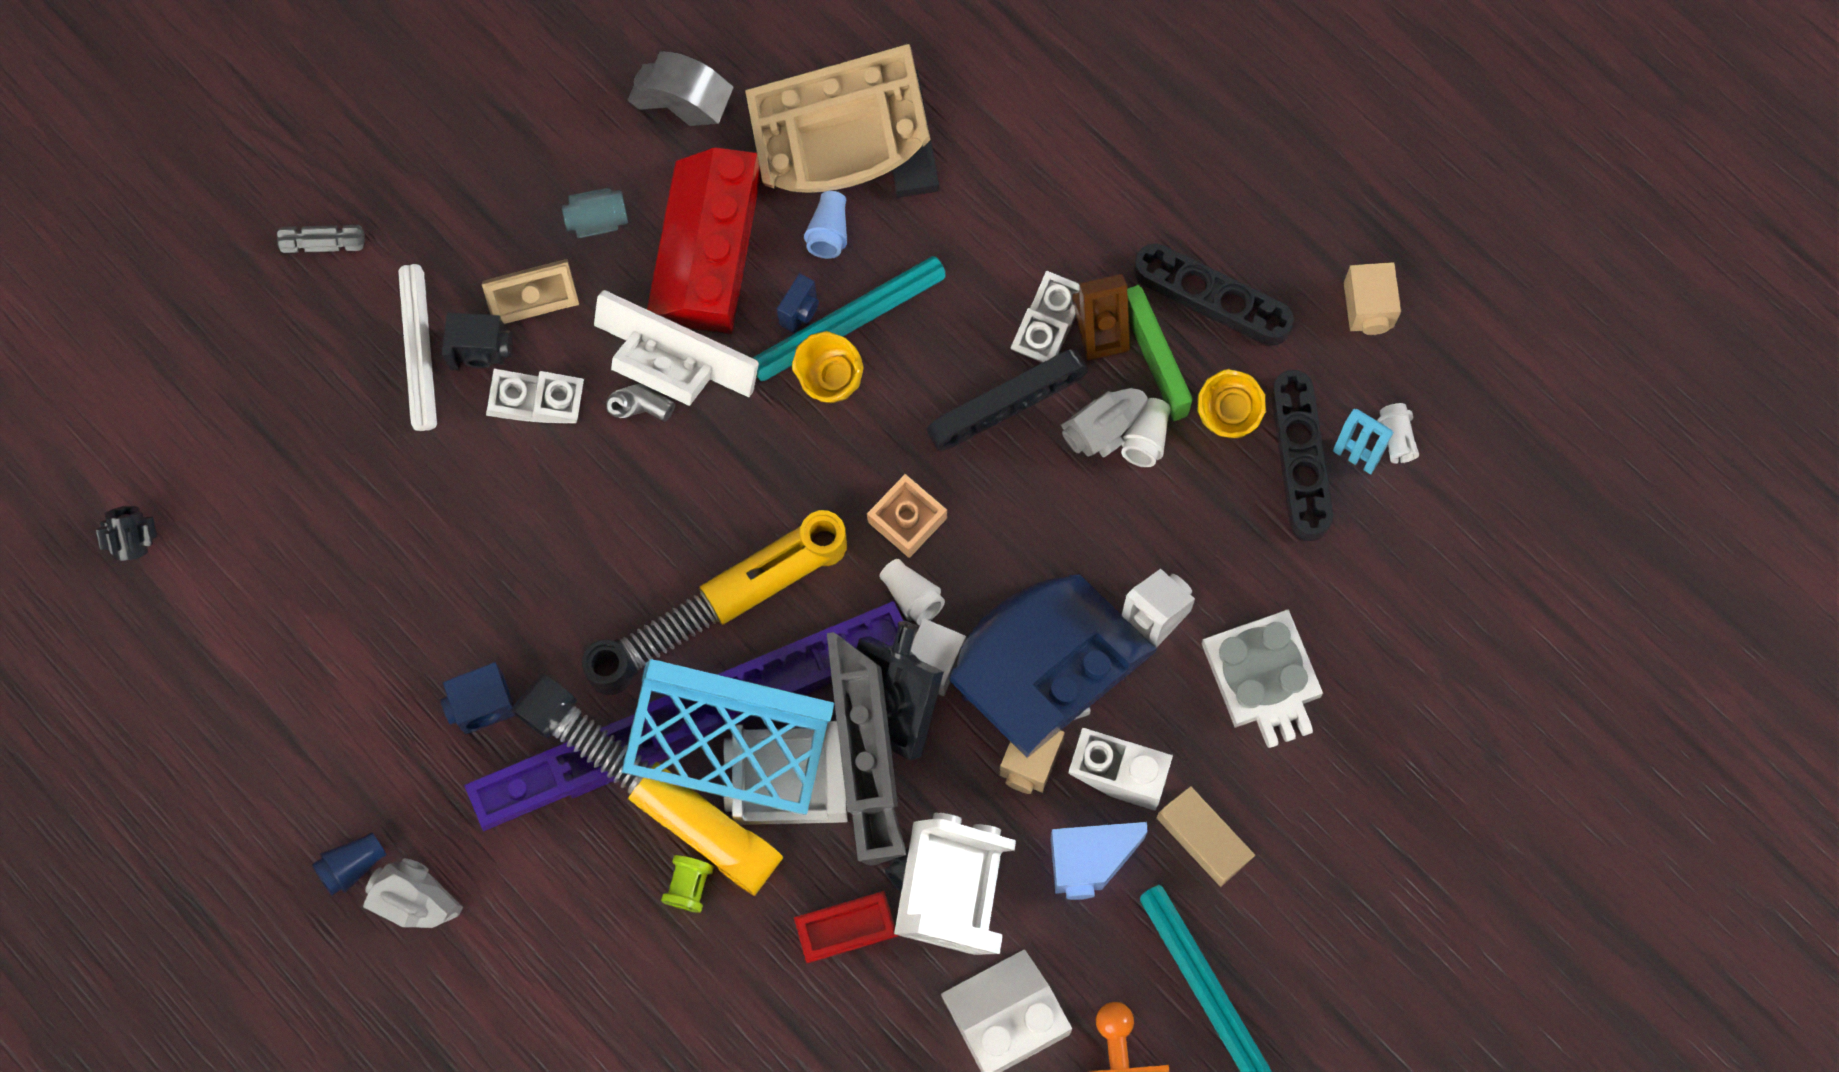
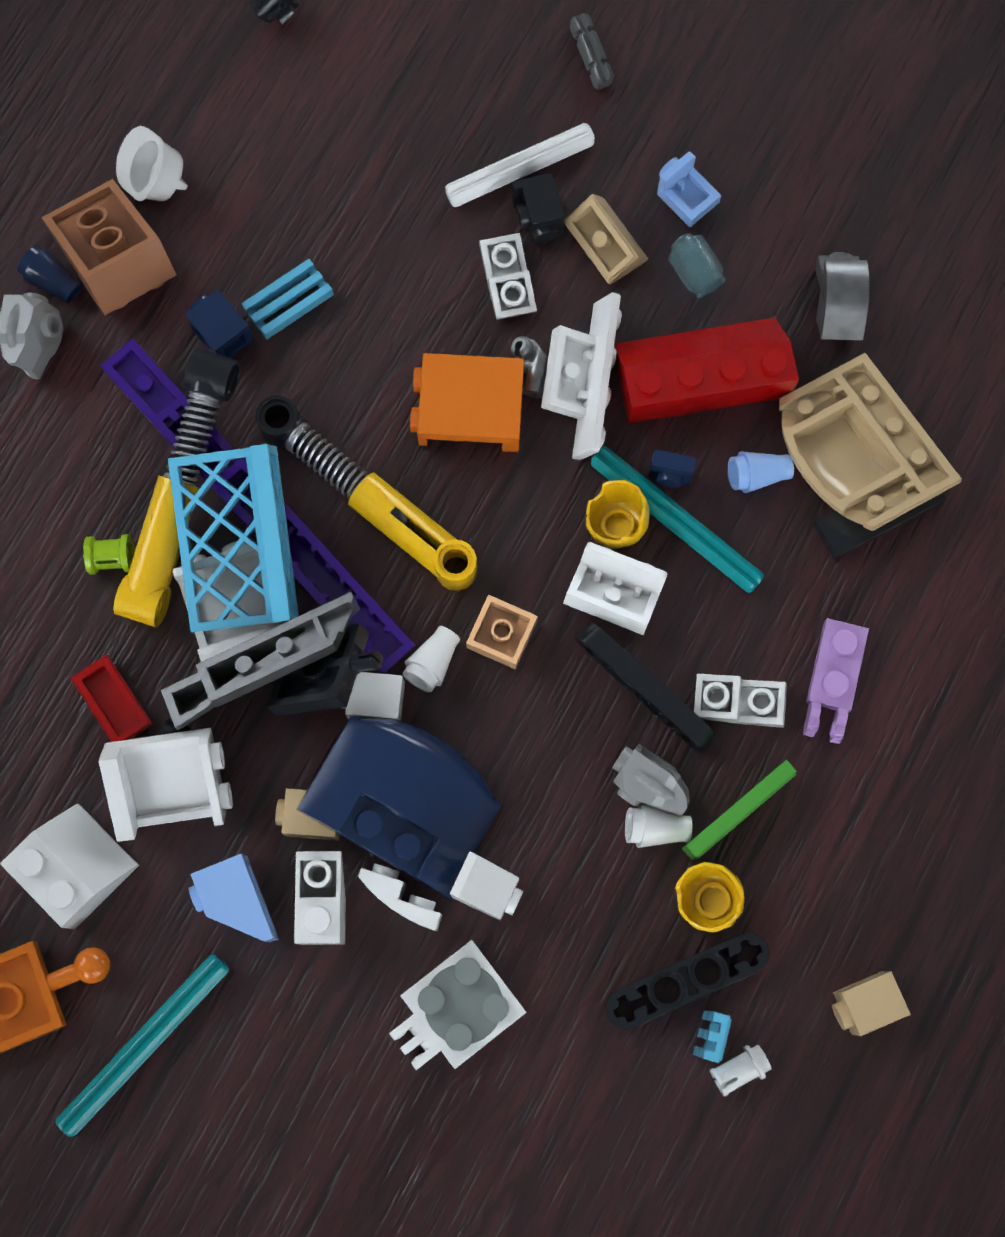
camera: 70 degrees right, 5 degrees up
(266, 721) = (149, 166): none -> white piece
(340, 788) = (110, 246): none -> nougat slope
(462, 589) = (280, 286): none -> medium azure tile
(513, 195) = (686, 189): none -> light blue bracket
(656, 472) = (468, 399): none -> orange panel
(900, 394) = (615, 588): none -> white bracket
(1055, 227) = (835, 676): none -> lavender hinge
(1103, 316) = (753, 748): reddish brown slope -> none
(1134, 700) = (385, 886): none -> white slope
(1205, 836) = (286, 998): tan slope -> none
(1210, 299) = (827, 848): black beam -> none

